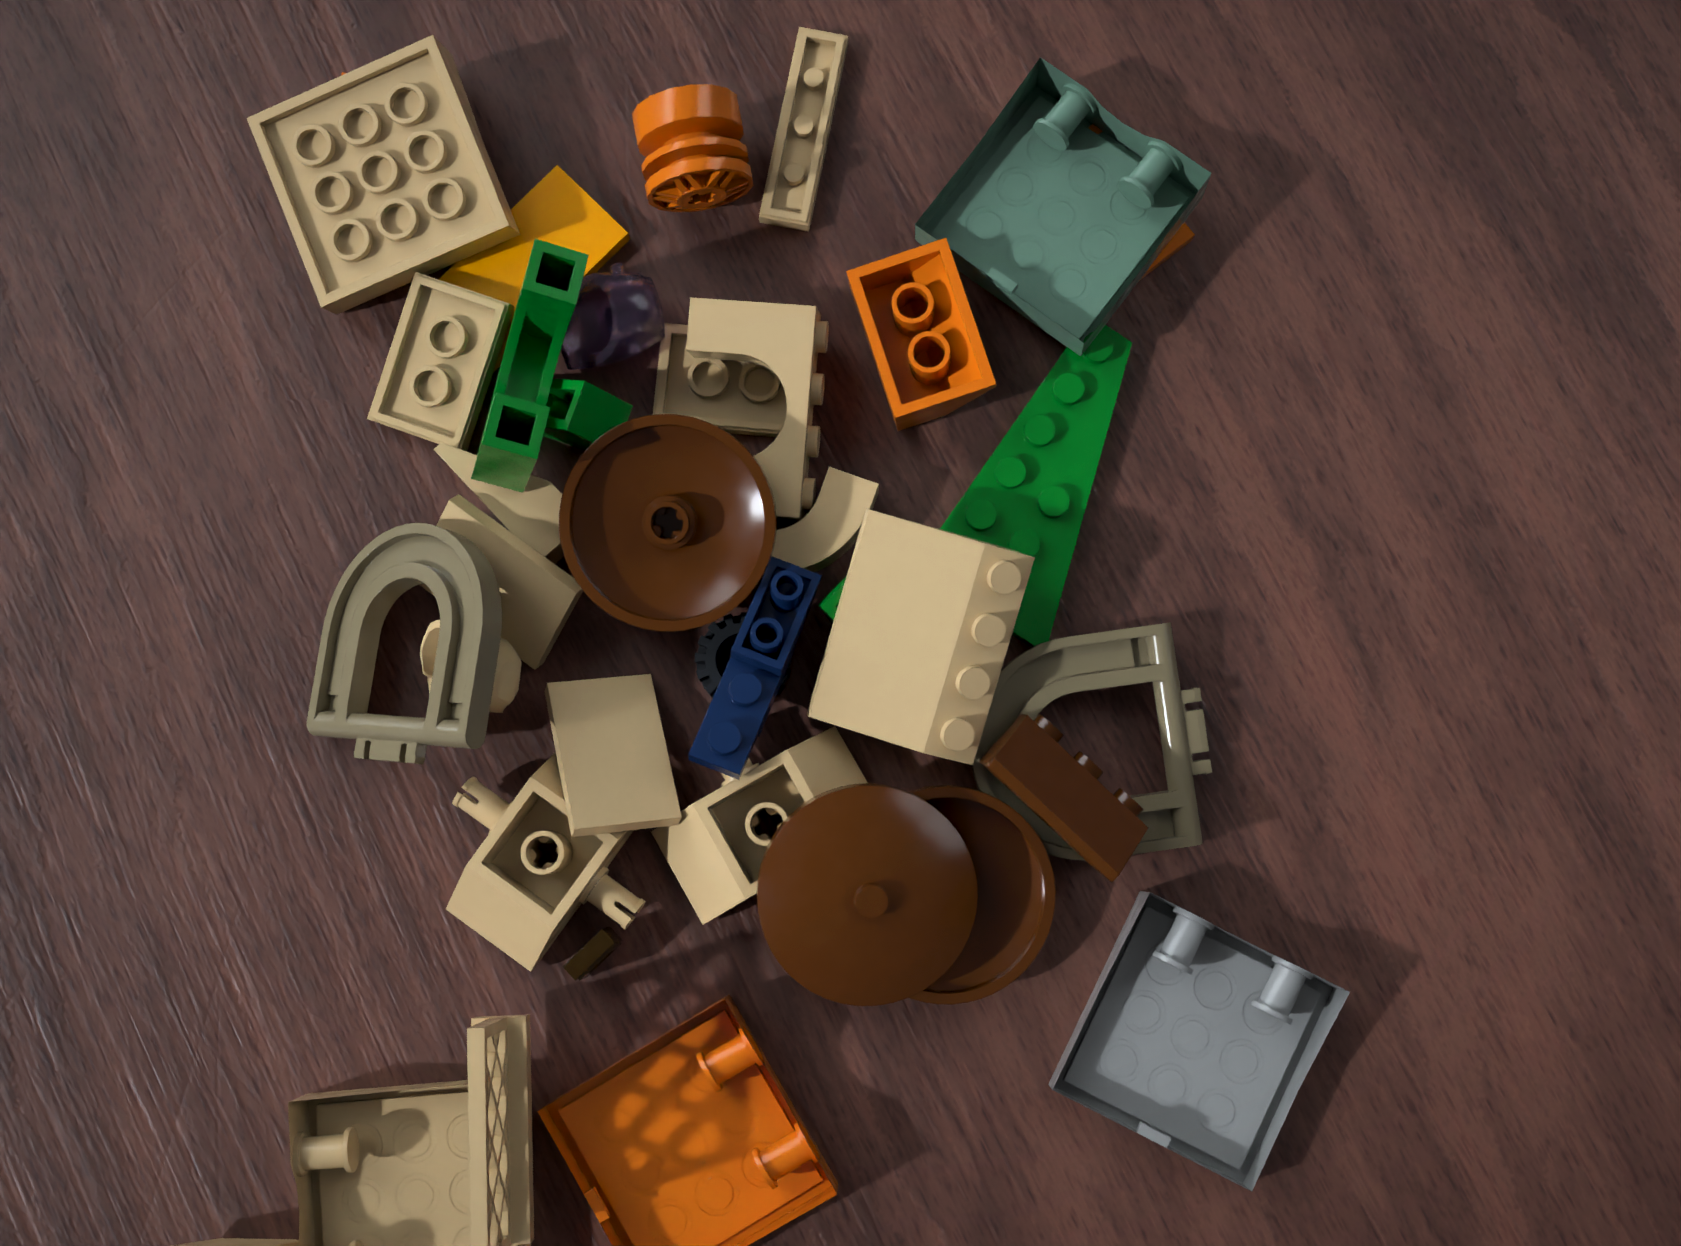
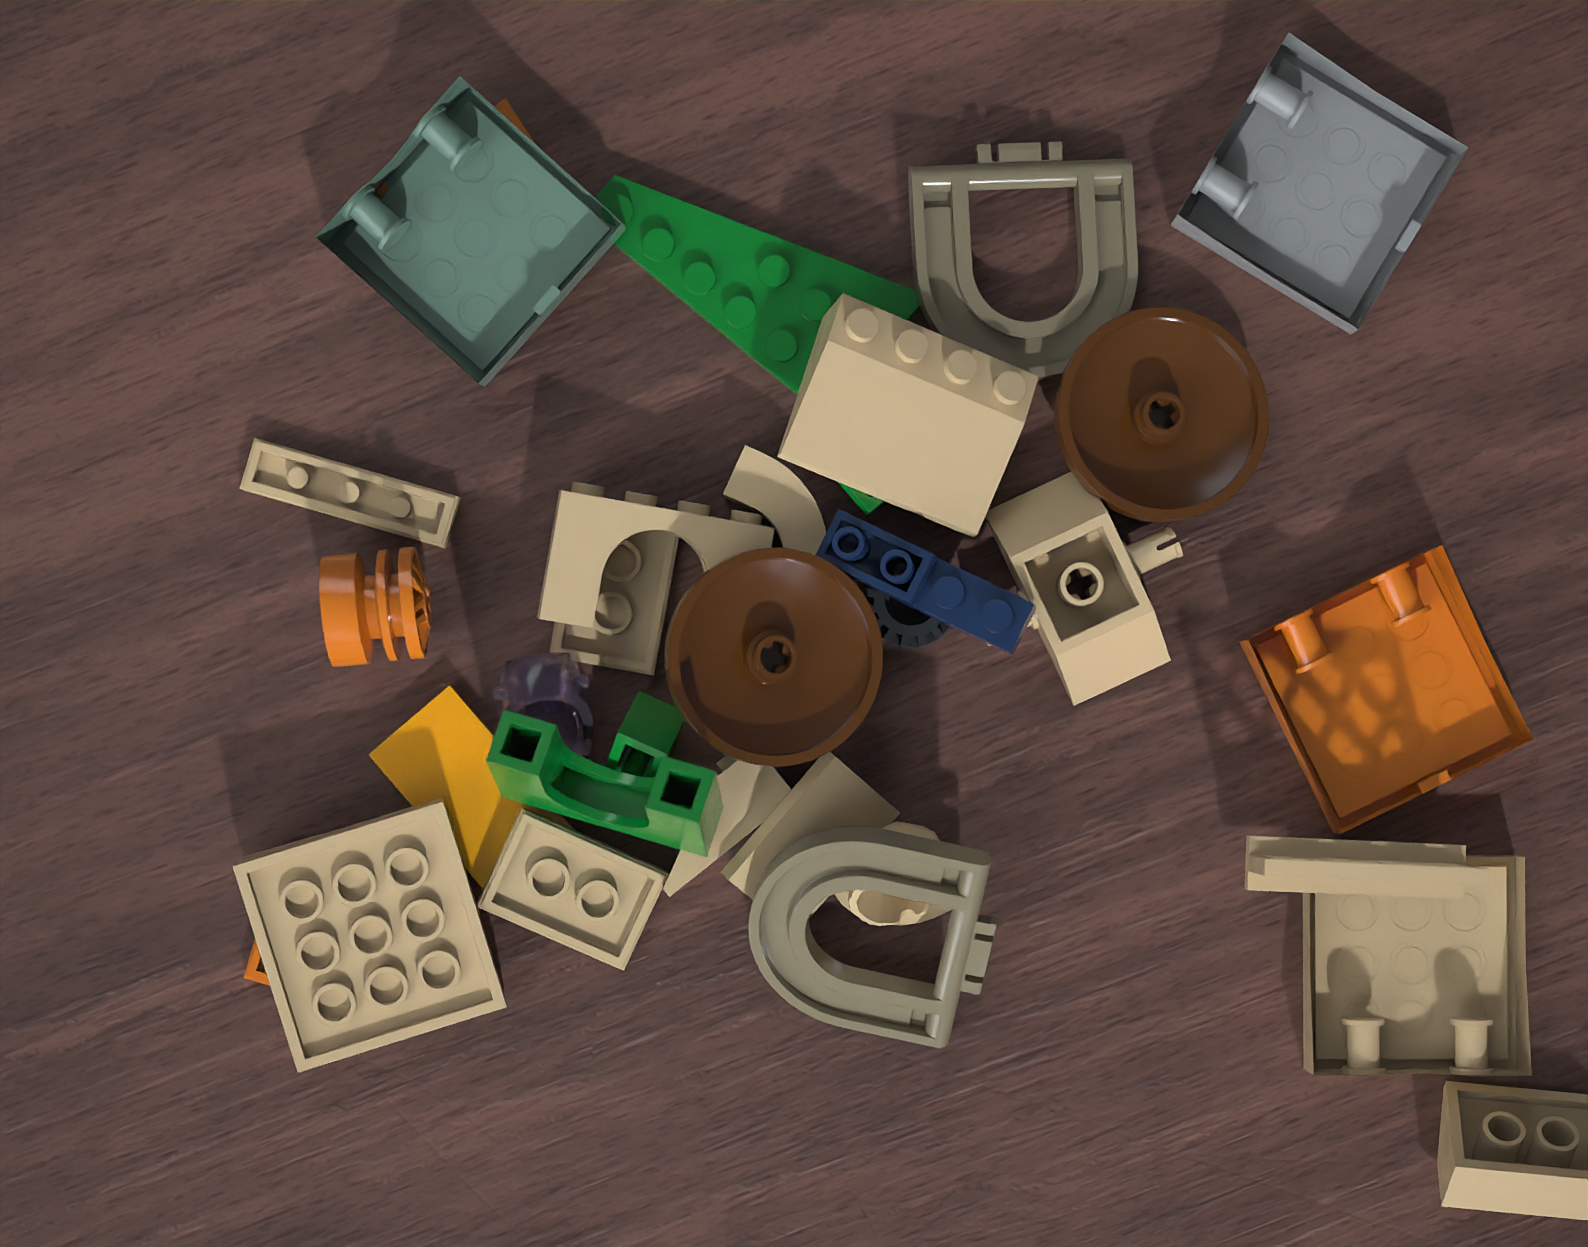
camera: 90 degrees left, 5 degrees up
(510, 892) = (1043, 773): tan slope -> none
(593, 954) = (1191, 771): dark brown tile -> none
(612, 755) = (997, 734): tan tile -> none
(866, 894) = (1158, 490): reddish brown dish -> none
(921, 333) = (591, 387): orange slope -> none
(1067, 794) = (1076, 286): reddish brown slope -> none

